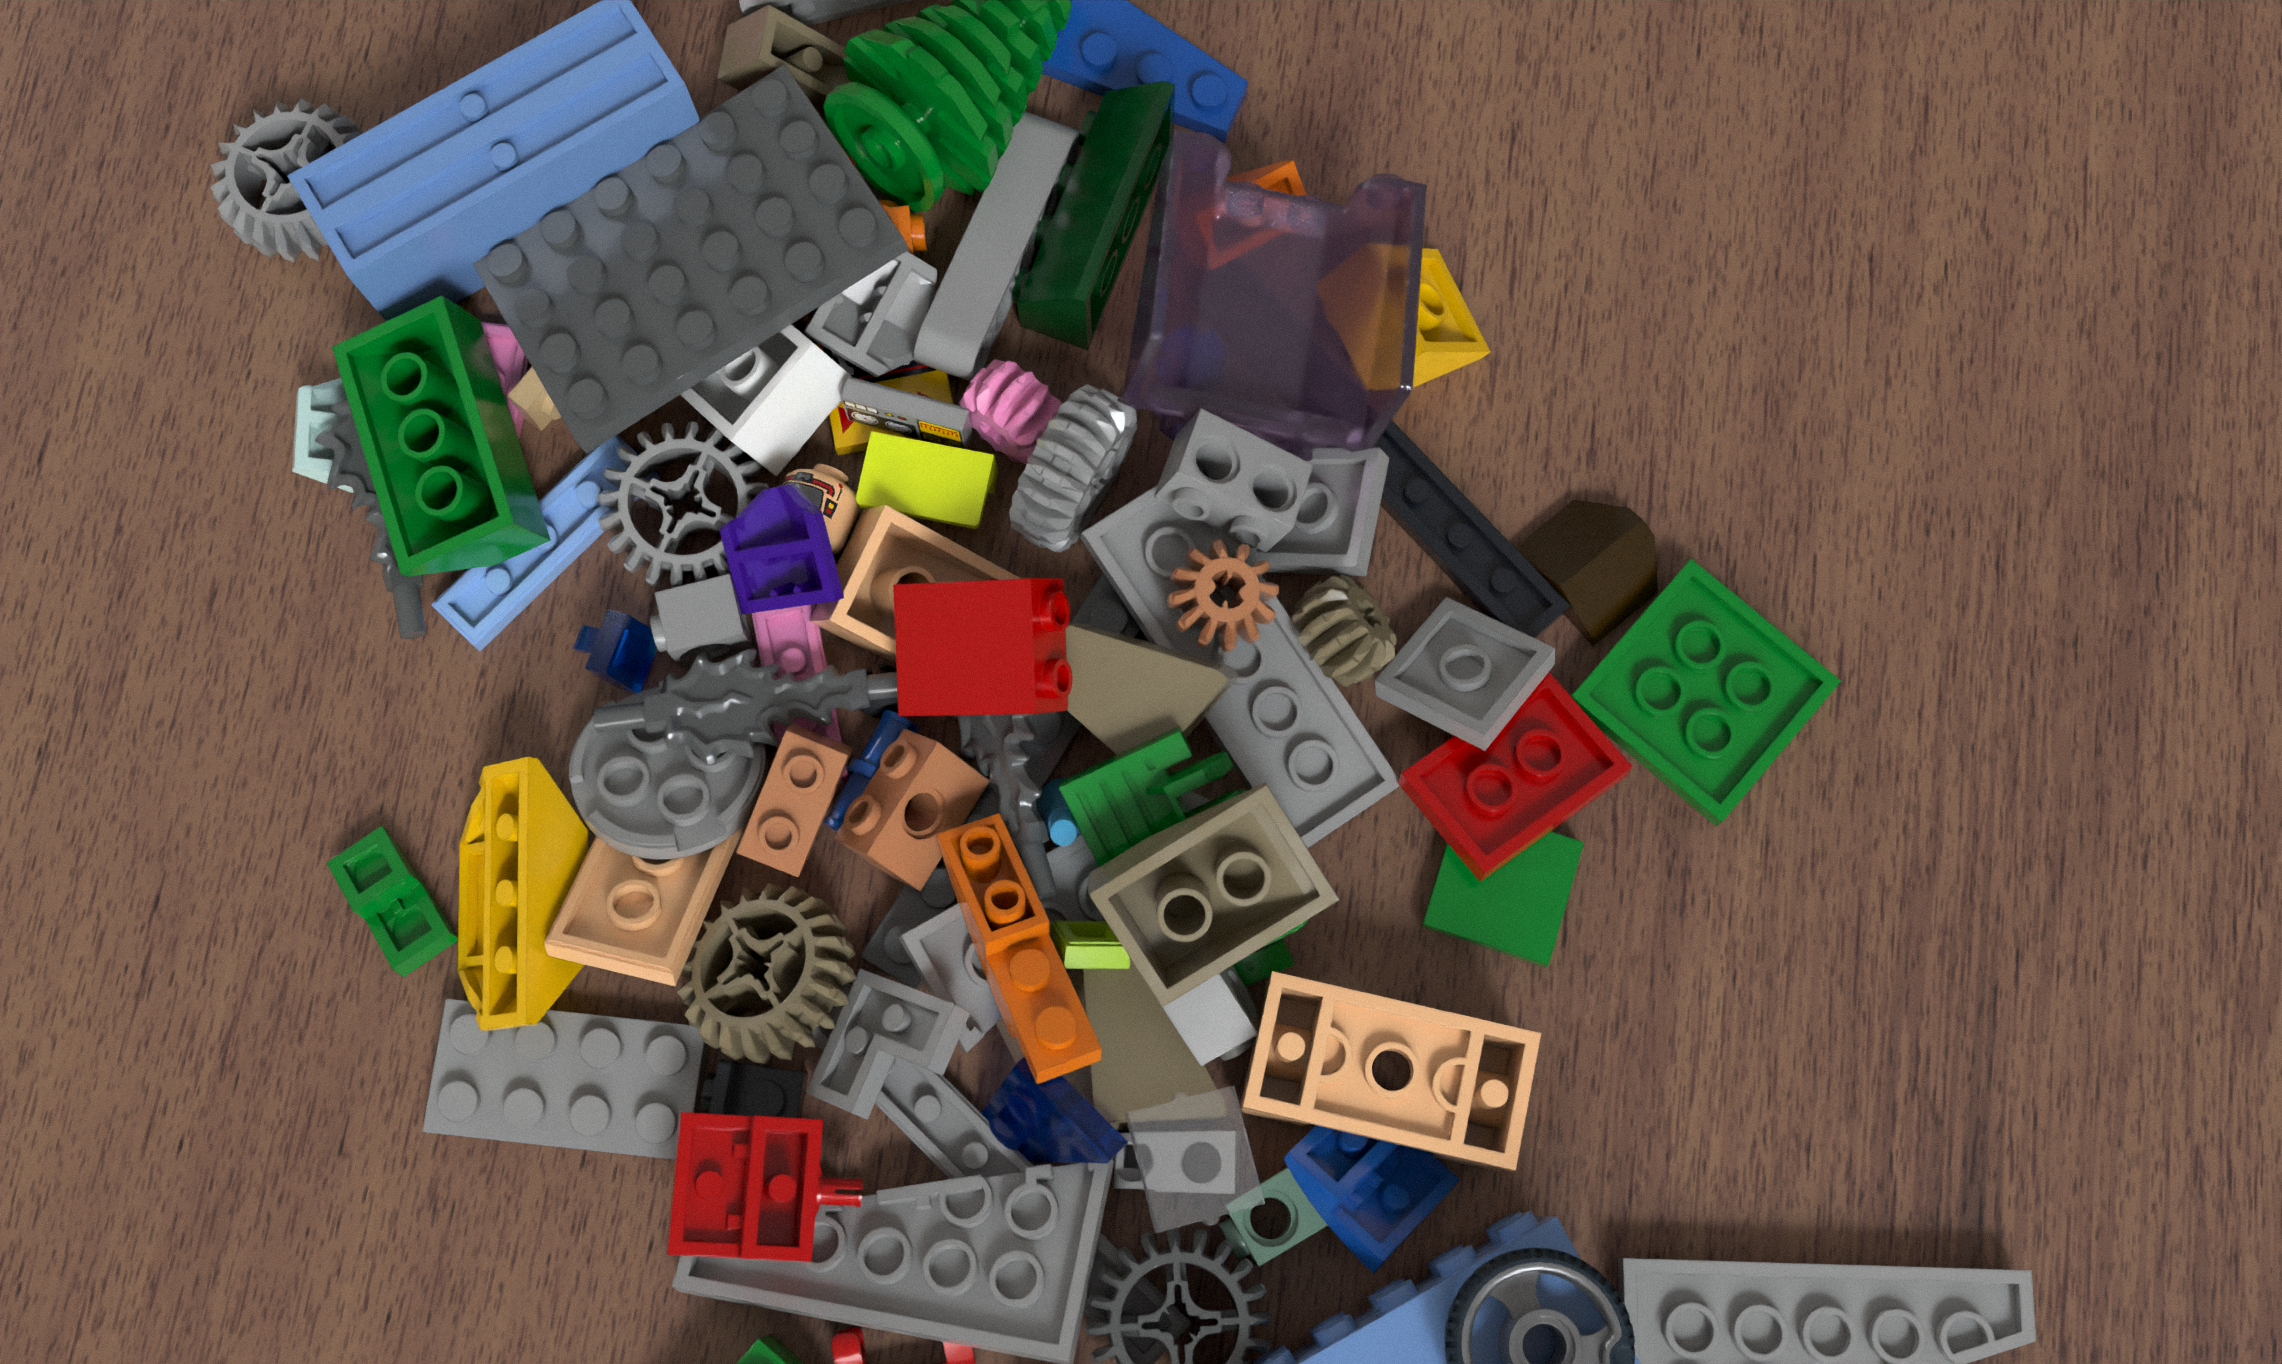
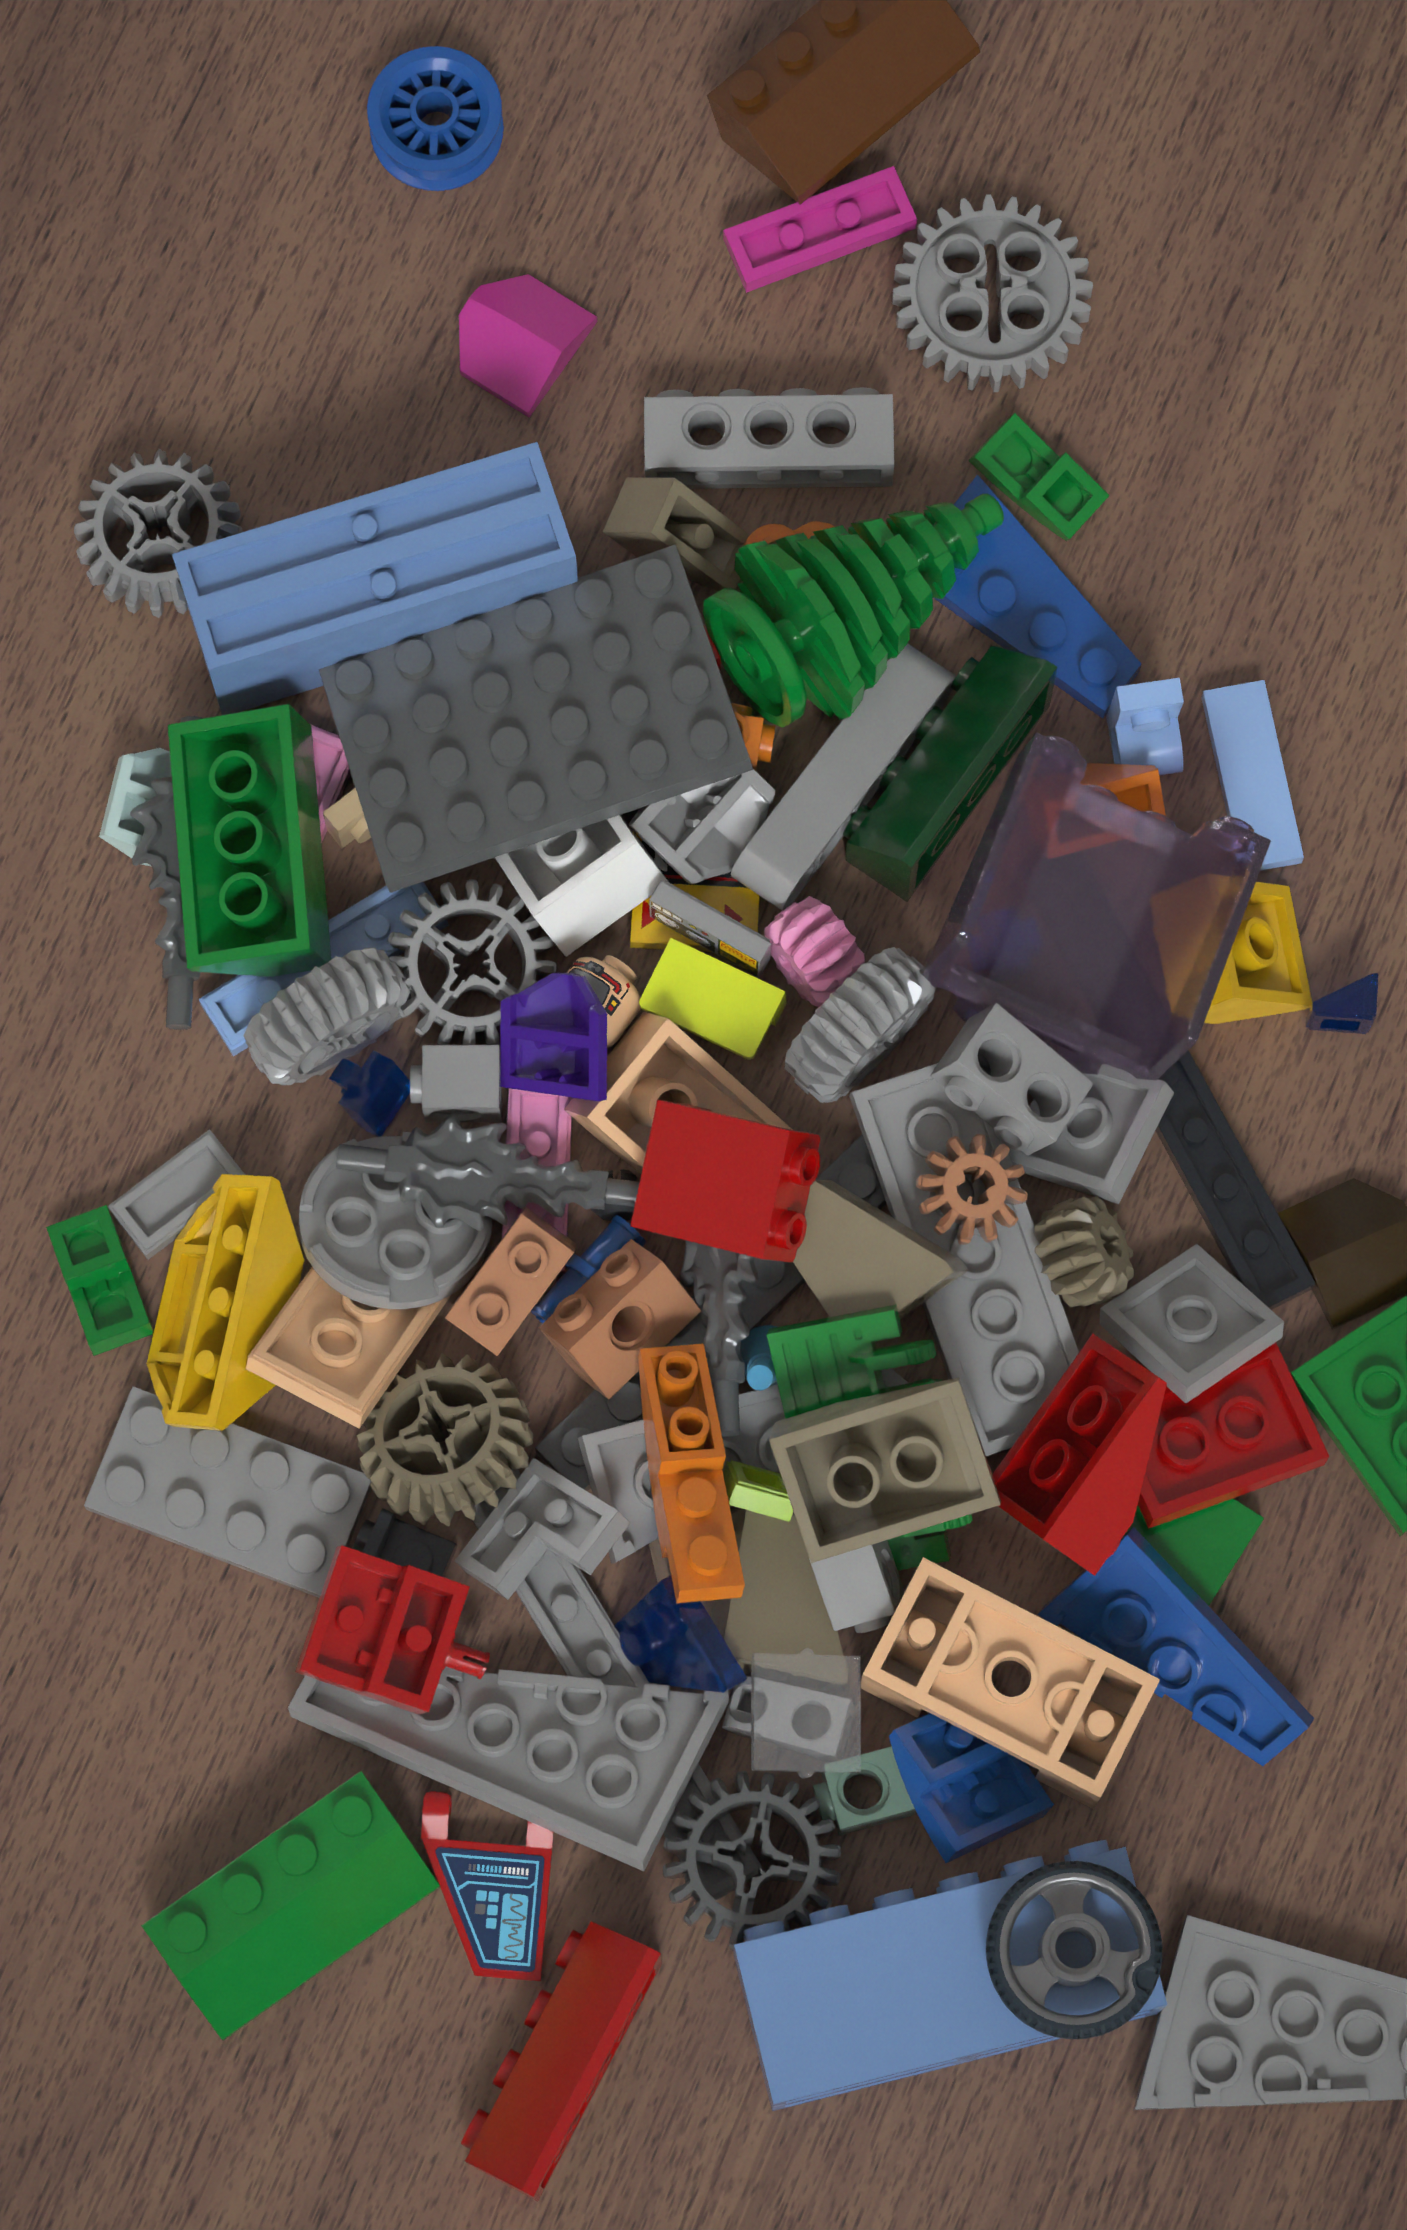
camera: 15 degrees right, 0 degrees up
(439, 807) = (169, 1196): none -> light grey tile
(552, 587) = (326, 1016): none -> light grey gear
(1266, 124) = (1146, 725): none -> light blue plate
(1368, 137) = (1253, 767): none -> light blue tile
(1404, 825) = (1085, 1455): none -> red slope
(1509, 973) = (1162, 1626): none -> blue wing
(1526, 344) = (1347, 1009): none -> clear blue slope

